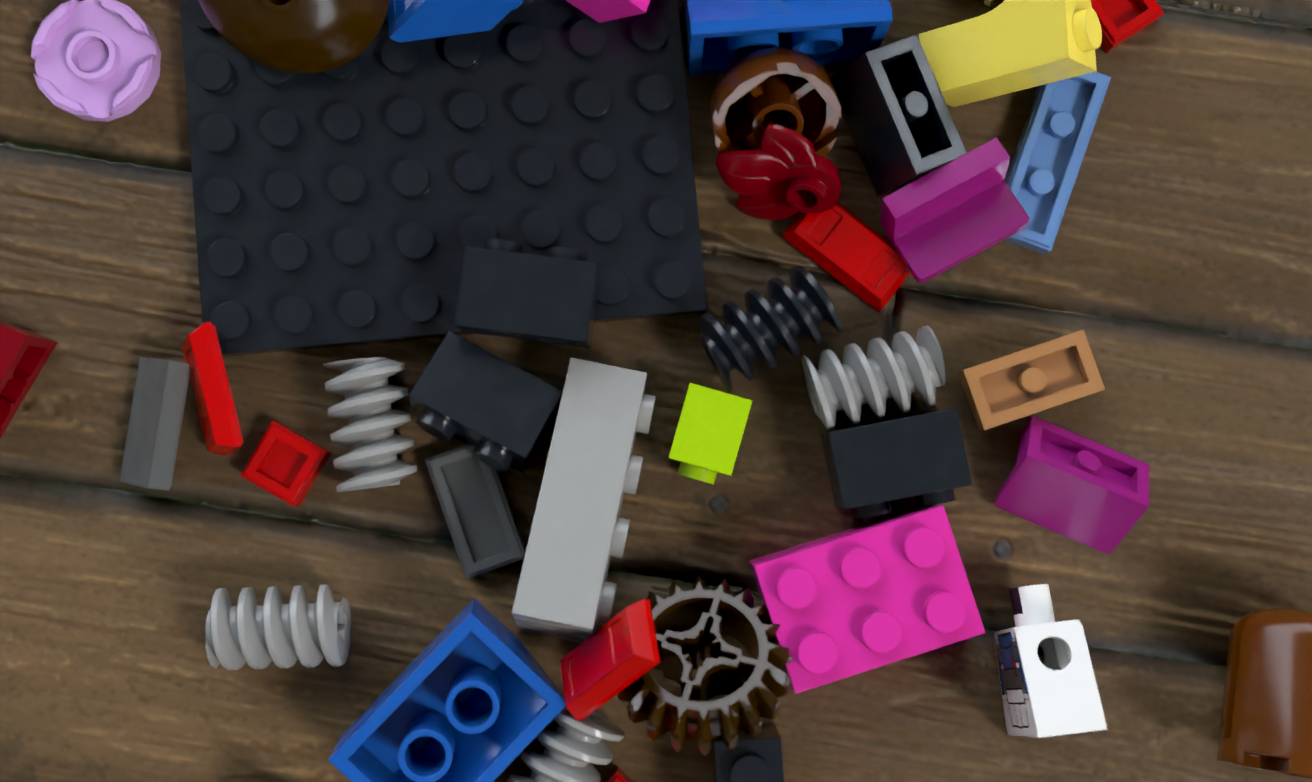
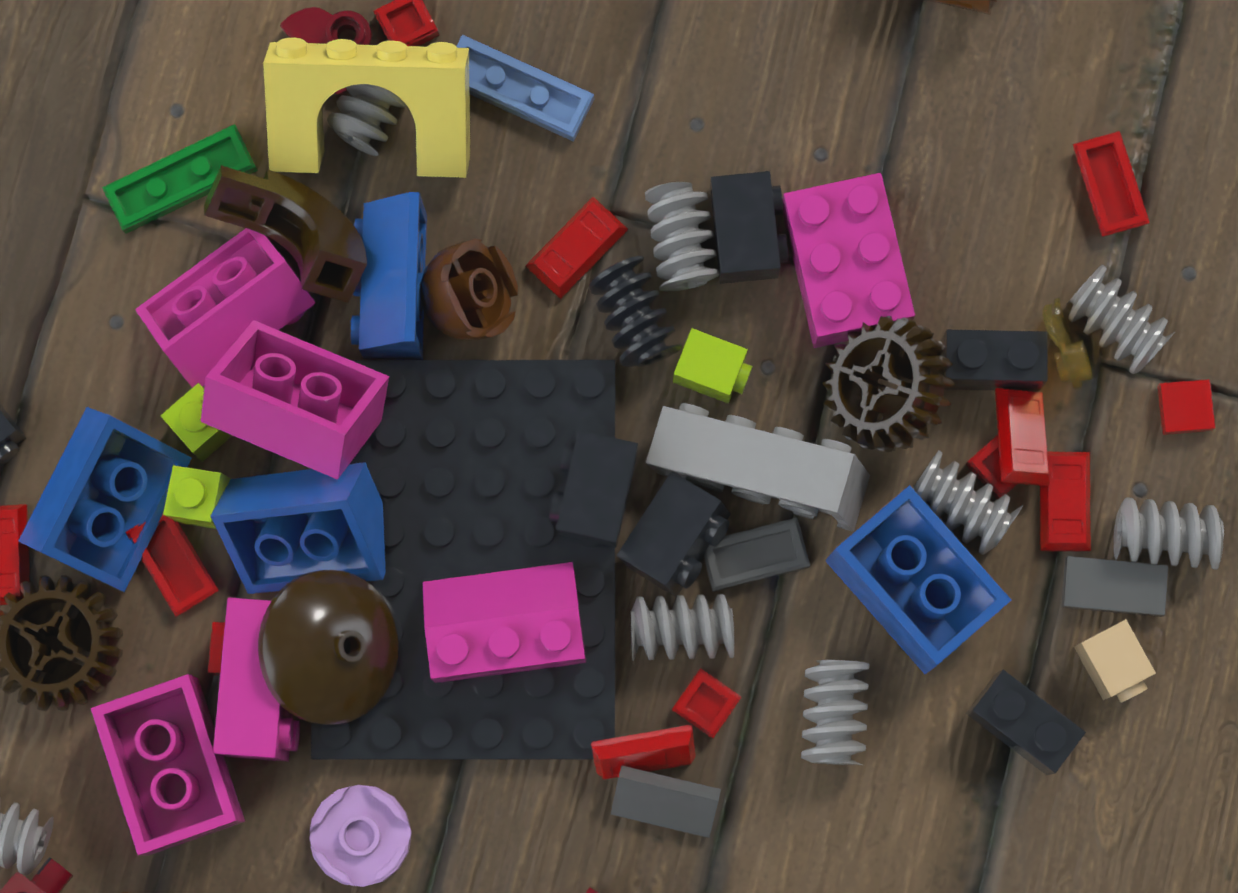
camera: 85 degrees left, 5 degrees down
(346, 194) = (502, 622): none -> dark pink slope
(610, 660) = (878, 447): red tile -> none
(780, 176) = (522, 291): dark red plate -> none
(897, 114) = (481, 198): black brick -> none
(953, 212) = (560, 164): magenta panel -> none
(1031, 380) = (693, 120): medium nougat plate -> none
(1053, 695) = (931, 134): white torso -> none
(1075, 486) = (776, 95): magenta panel -> none

